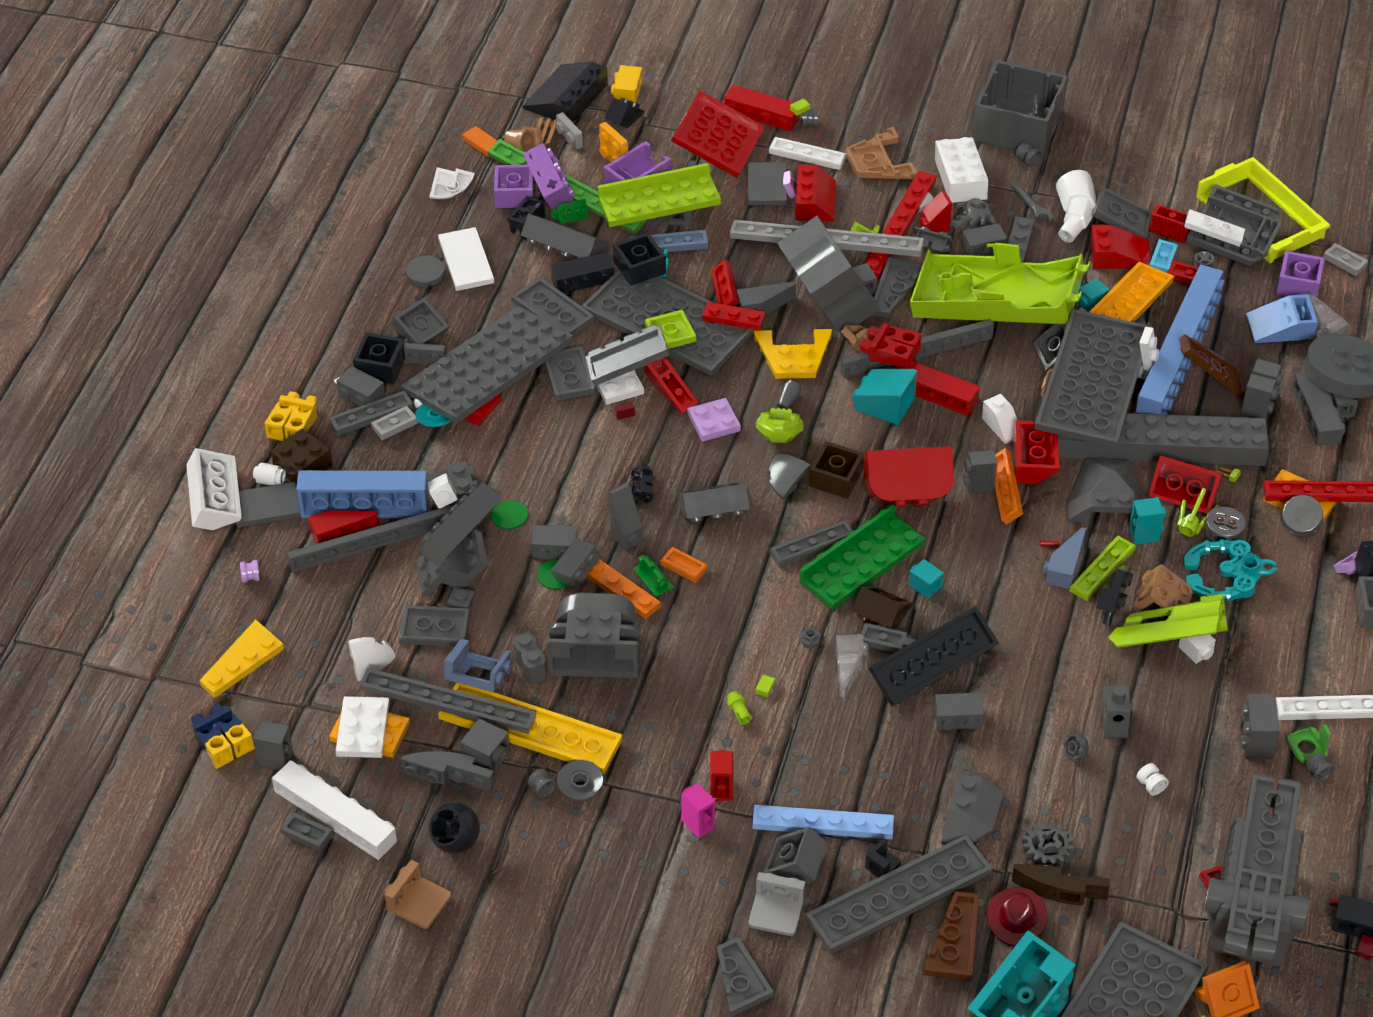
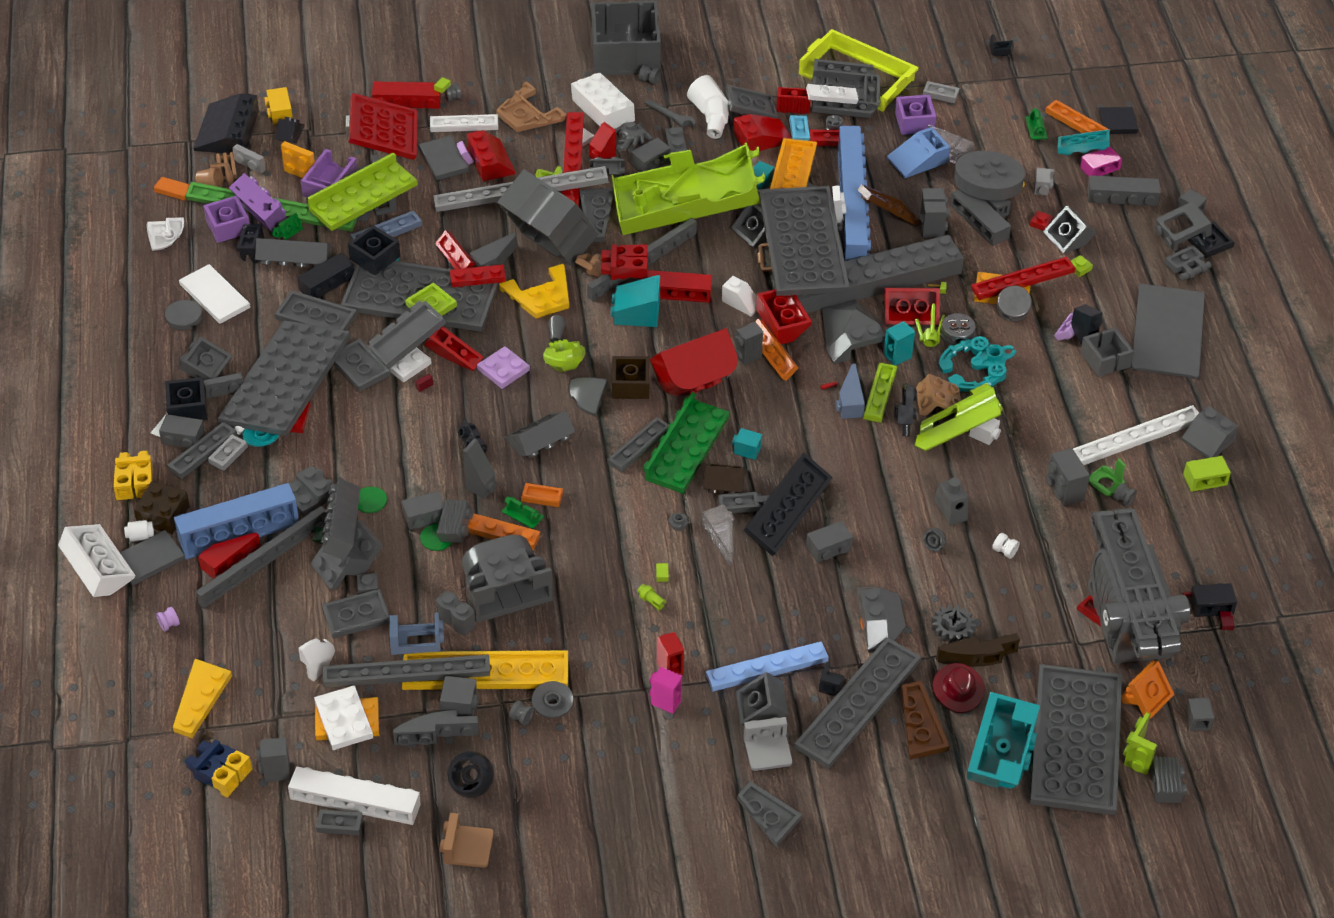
camera: 25 degrees left, 0 degrees up
(442, 491) = (308, 496): white brick -> none

